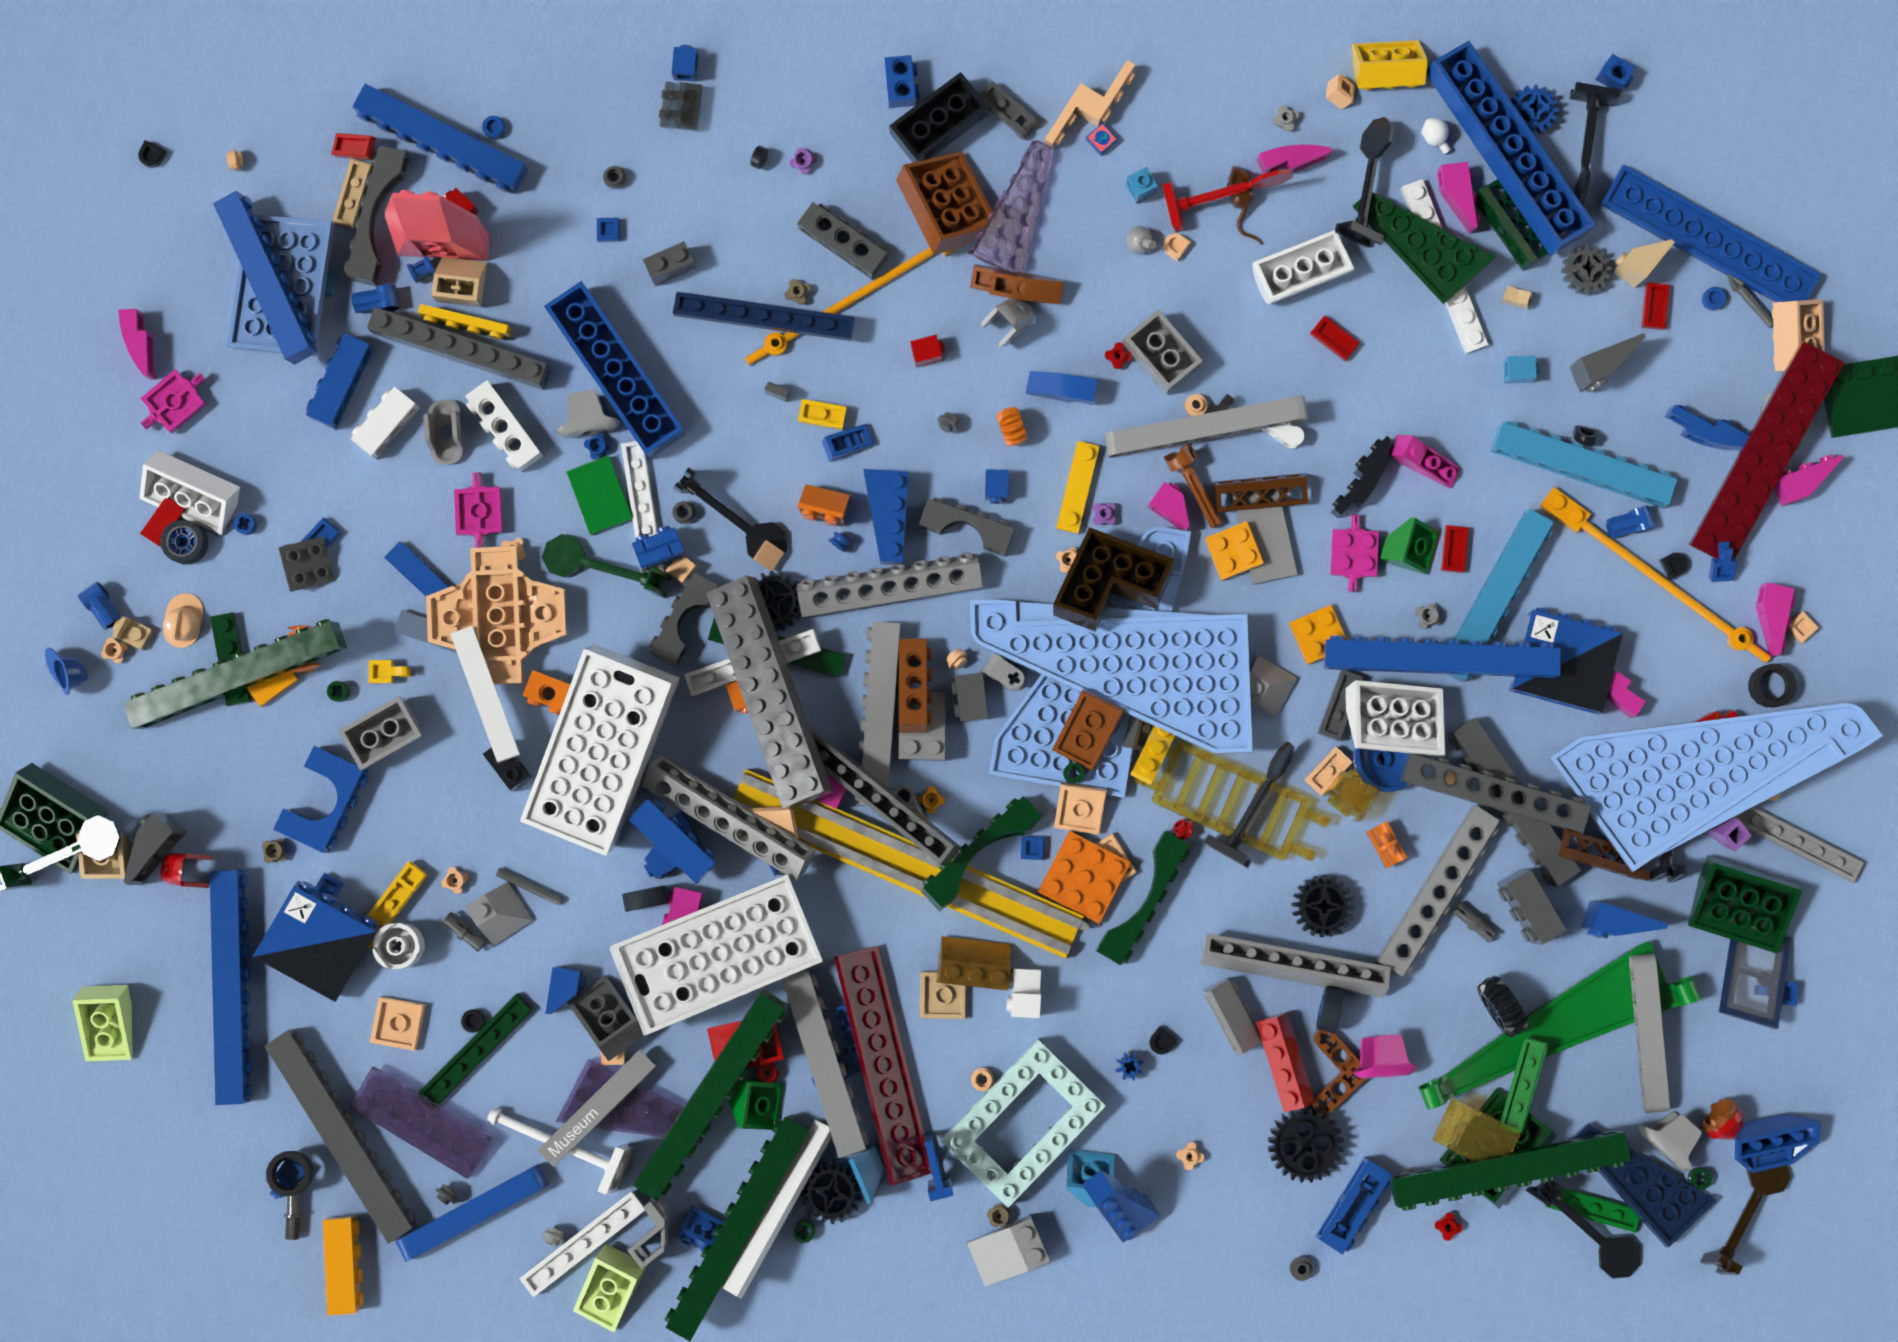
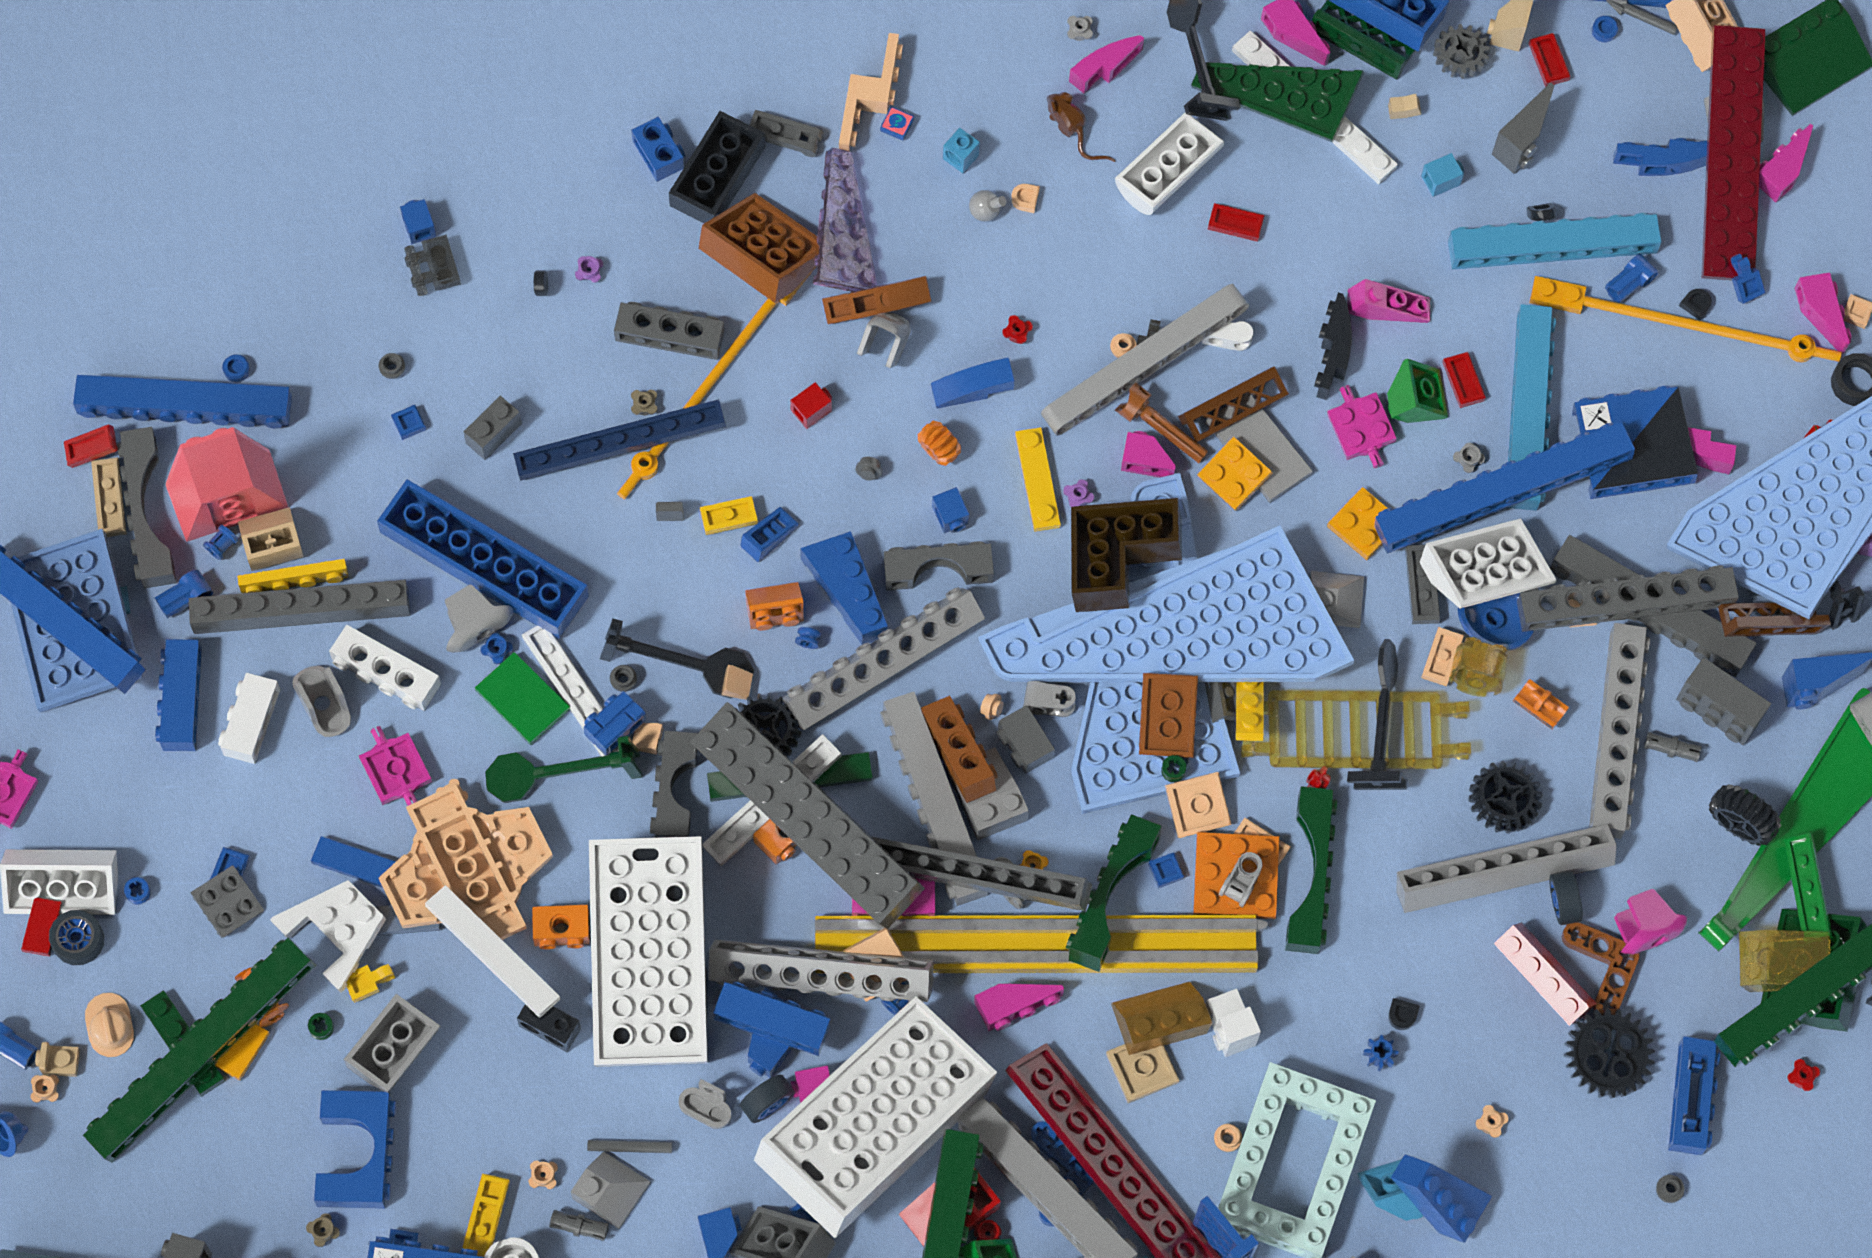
camera: 25 degrees left, 15 degrees down
(389, 618) = (344, 918): none -> white wing
(597, 882) = (706, 1105): none -> light grey bracket
(863, 901) = (1009, 1001): none -> dark pink slope
(1062, 556) = (1062, 548): light nougat plate -> none
(1083, 887) = (1241, 883): none -> light grey piece
(1162, 352) = (1062, 304): light grey brick -> none
(1176, 205) = (1089, 92): red piece -> none
(1232, 1016) = (1464, 951): light grey slope -> none

